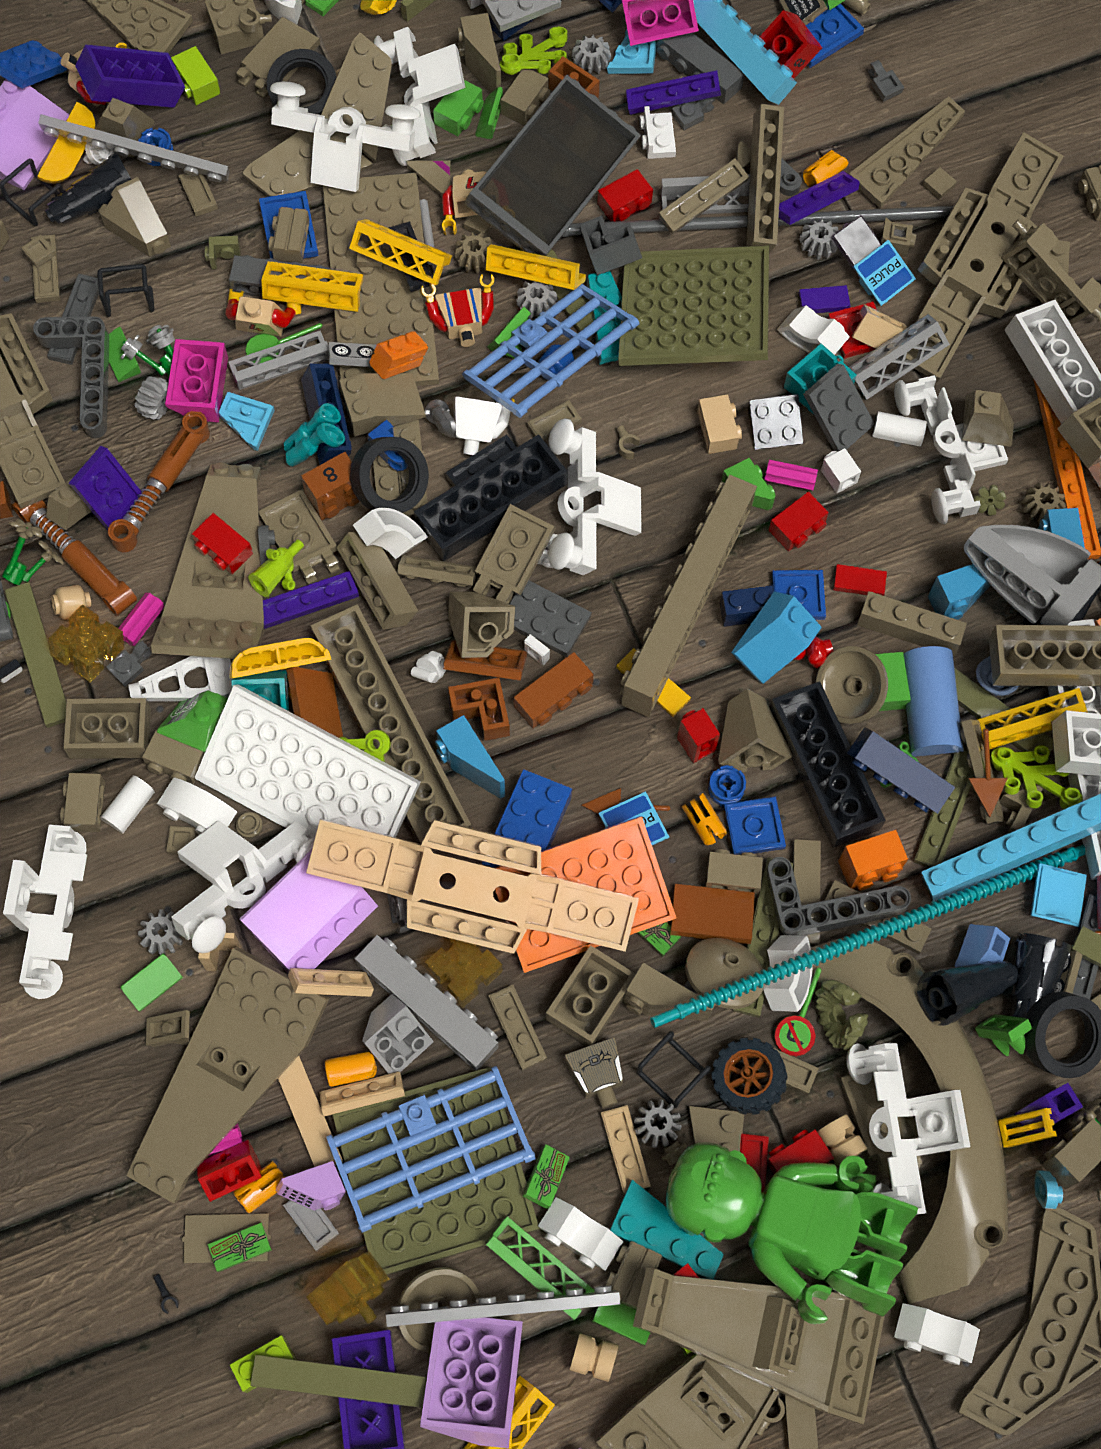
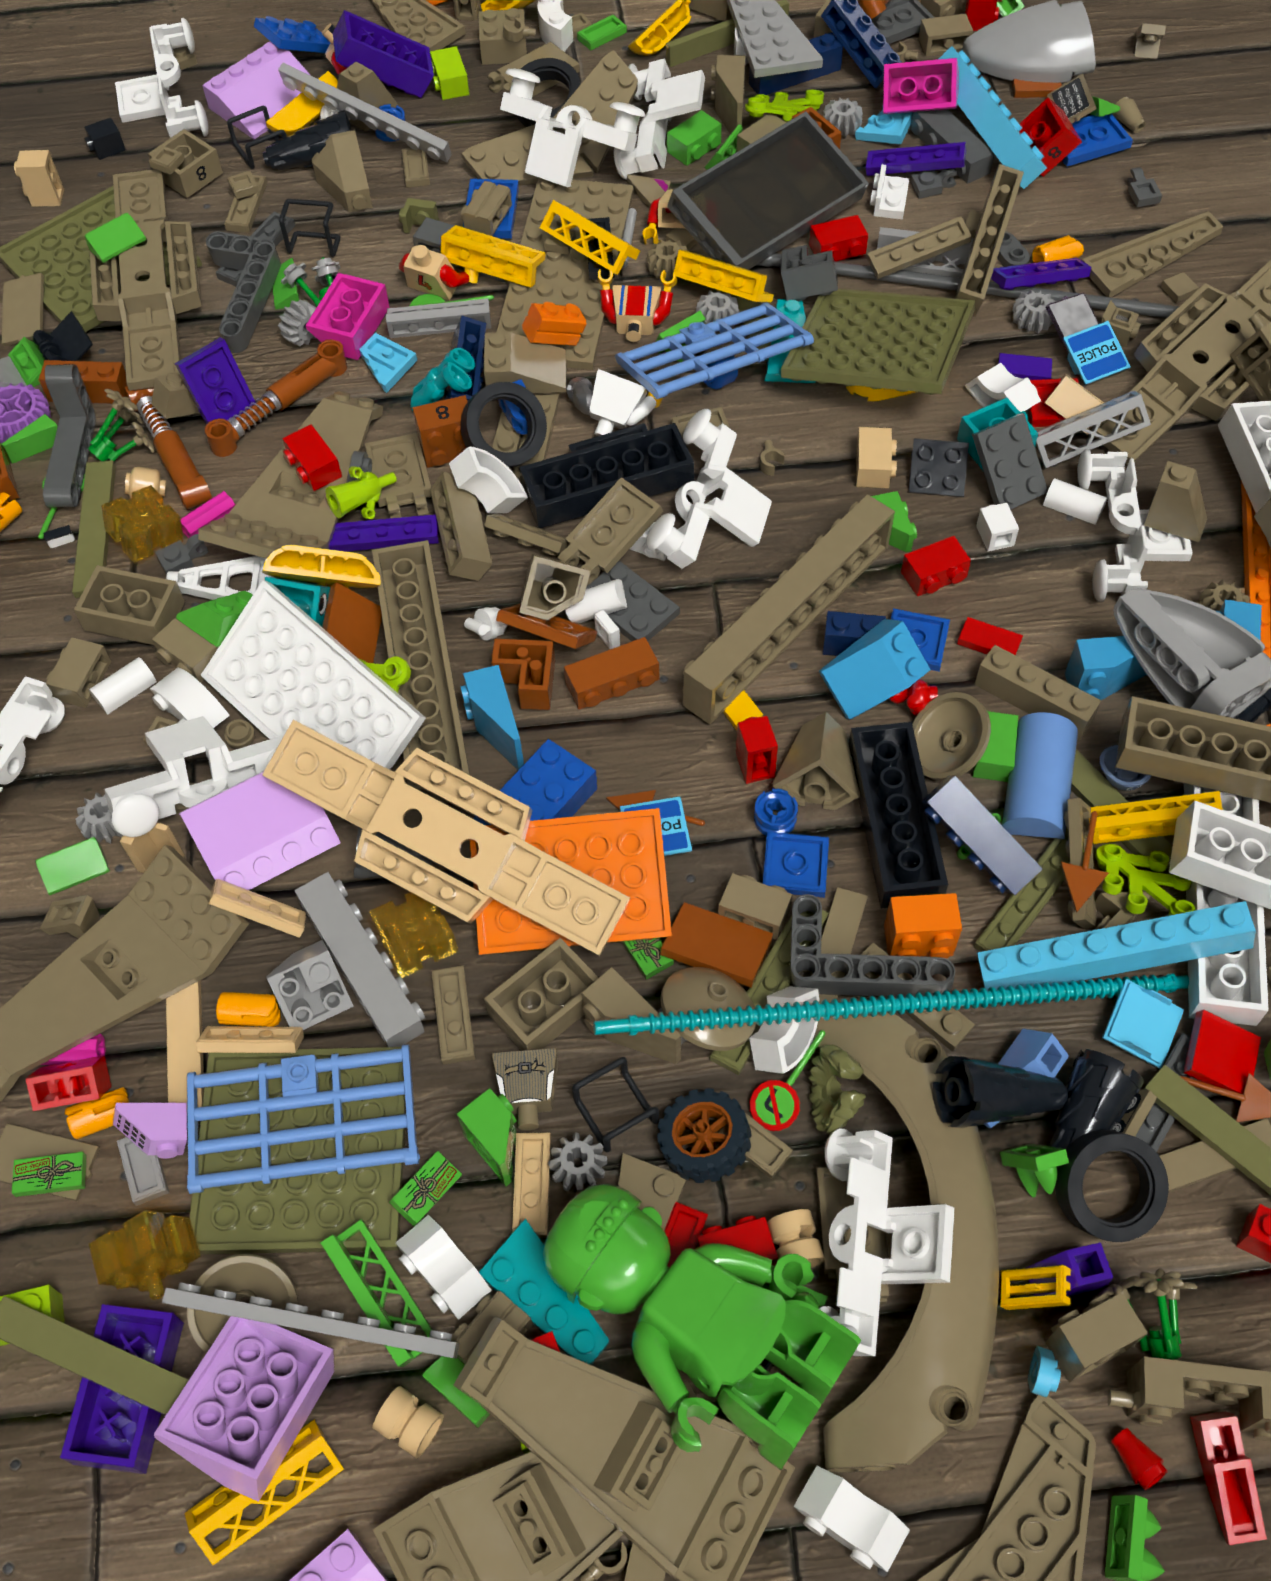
camera: 20 degrees right, 10 degrees down
(350, 354) = (504, 318): light grey tile -> none
(526, 623) = (604, 597): none -> white brick
(586, 1120) = (491, 1131): none -> bright green slope
(706, 824) = (740, 846): light orange arm -> none
(791, 475) = (940, 520): dark pink axle -> none
(990, 499) = (1168, 585): olive plant -> none

